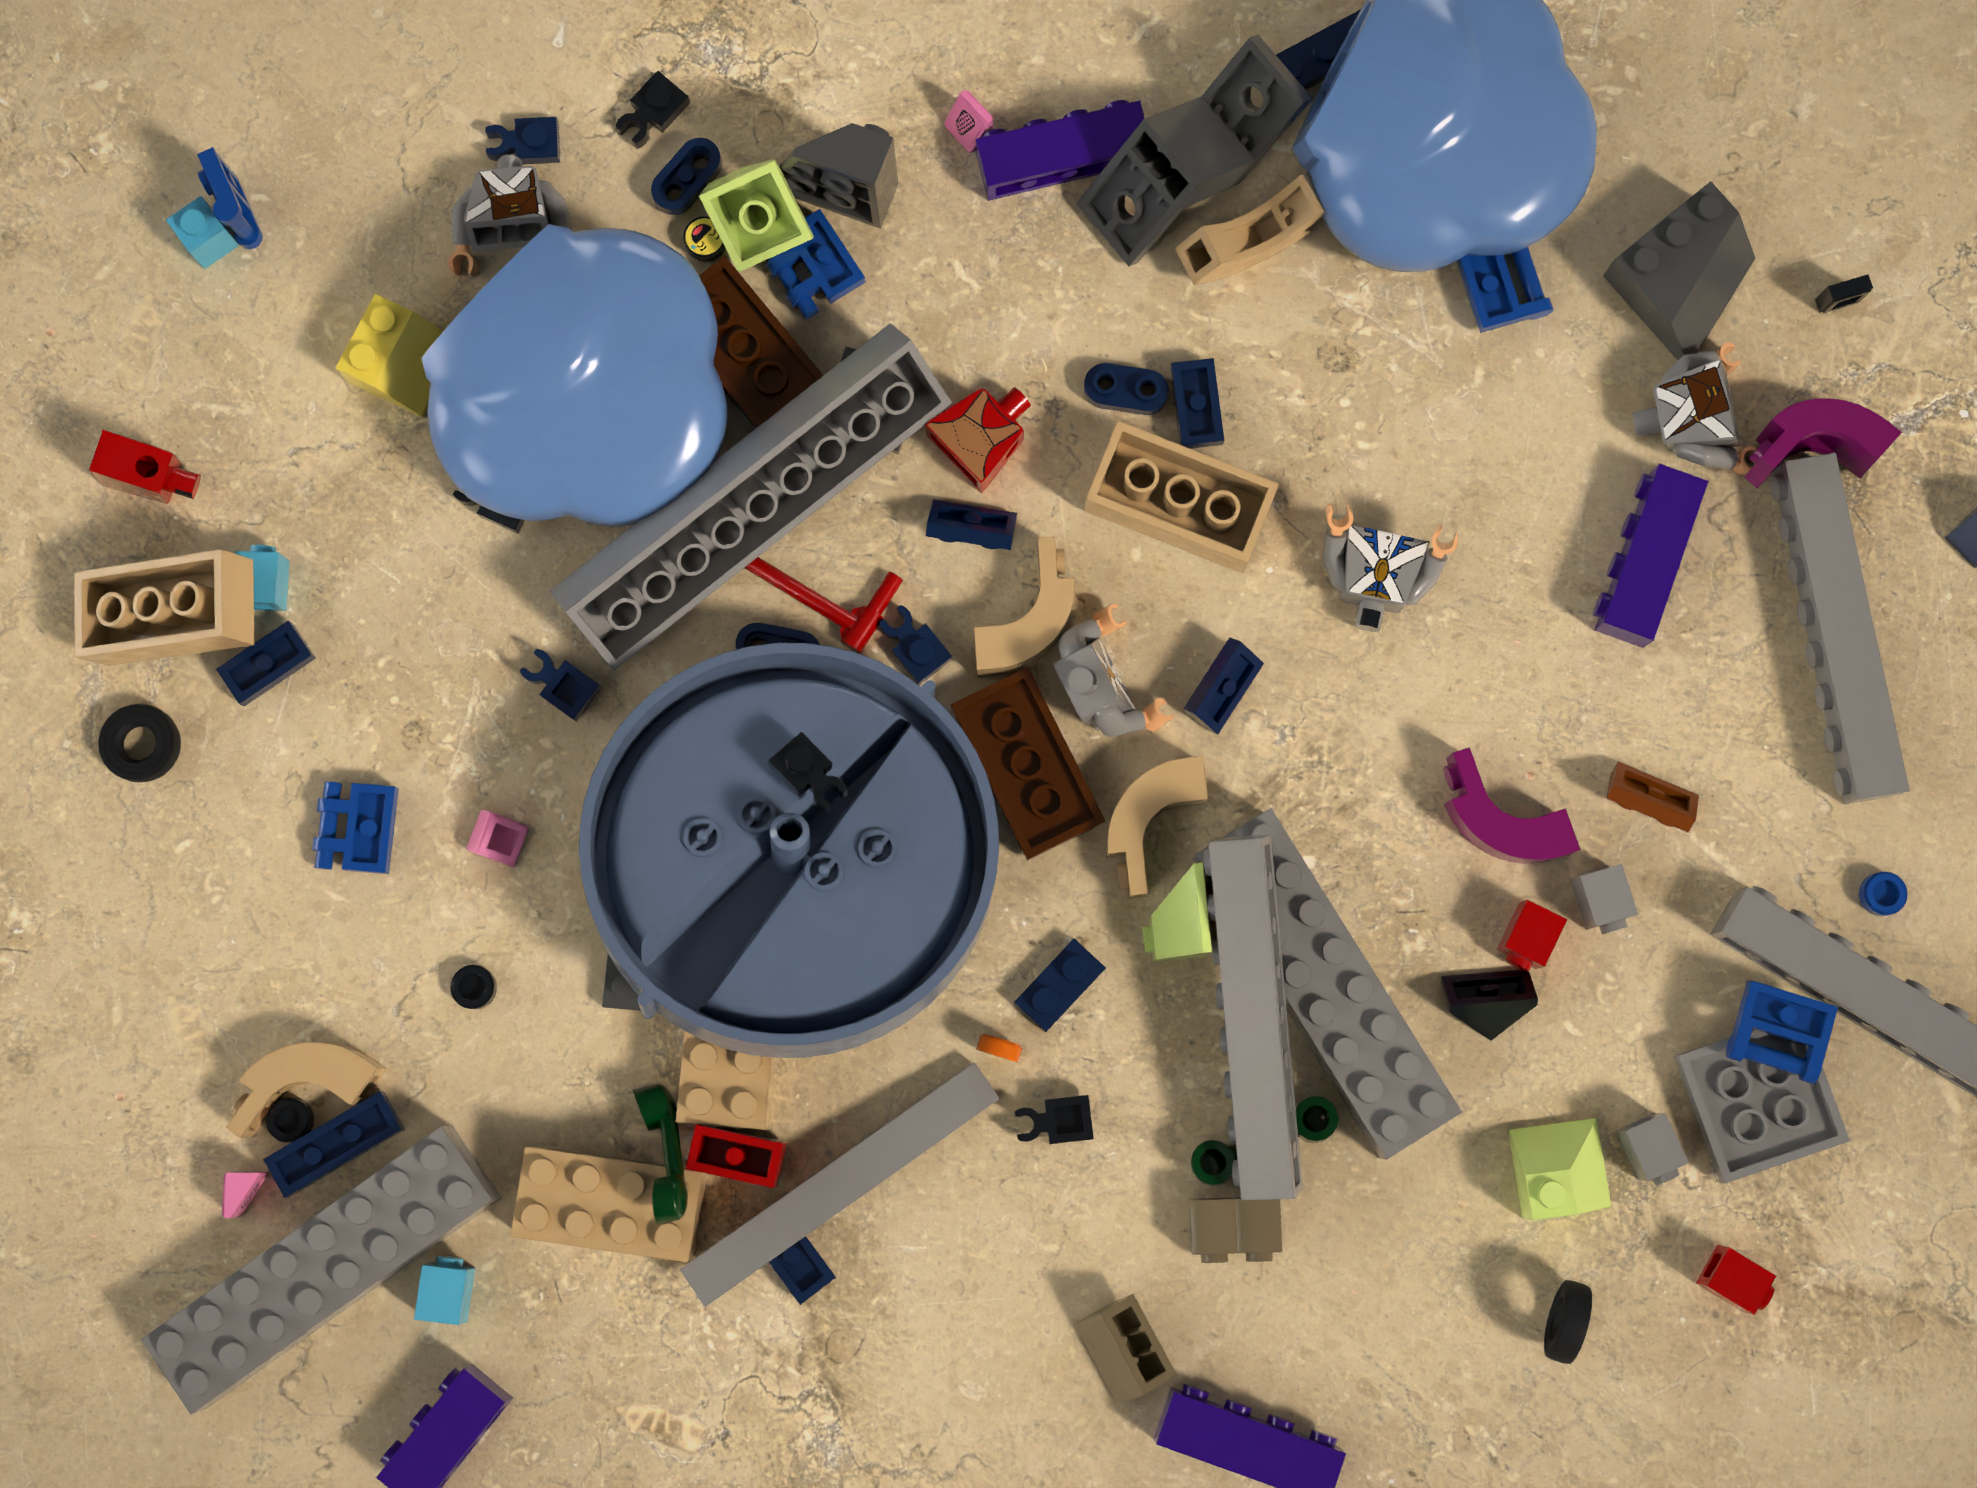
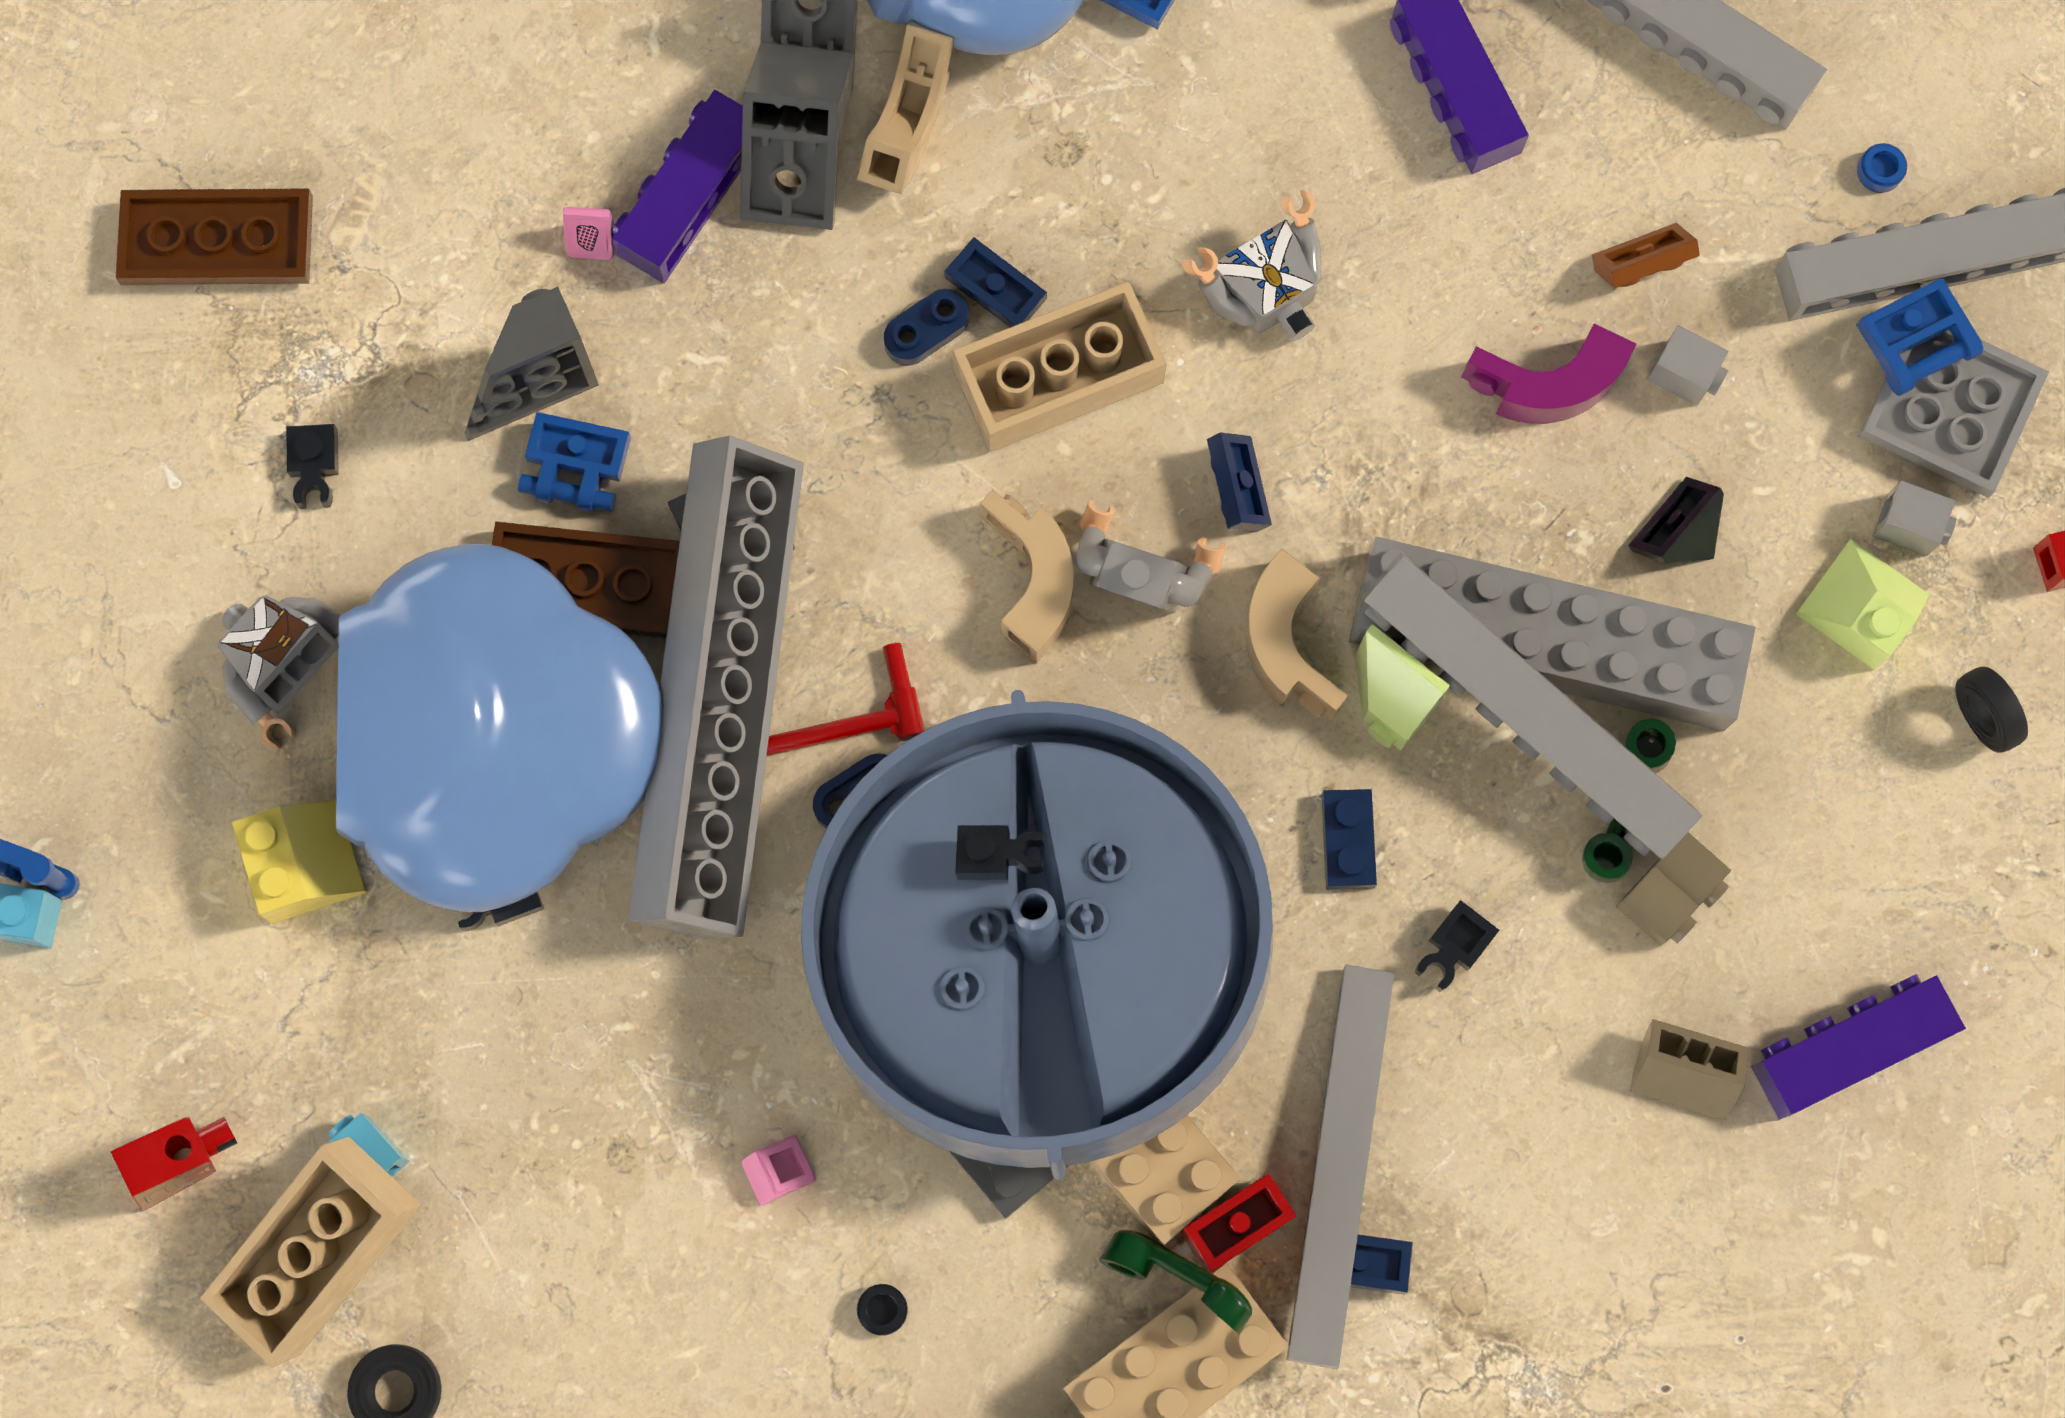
camera: 50 degrees left, 5 degrees down
(266, 663) = (440, 1220): dark blue plate -> none
(368, 828) = (665, 1268): blue plate -> none
(531, 141) = (234, 580): dark blue plate -> none
(565, 688) = (715, 992): dark blue plate -> none
(683, 176) = (397, 491): dark blue plate -> none
(703, 240) = (462, 523): tile -> none
(755, 214) = (490, 460): yellowish green slope -> none
(918, 650) = (970, 686): dark blue plate -> none
(971, 525) = (913, 546): dark blue plate -> none
(980, 433) = (847, 469): torso -> none
(999, 1047) = (1354, 933): orange tile -> none
(1028, 764) = (1155, 683): reddish brown plate -> none
(1531, 936) = (1664, 447): red brick -> none

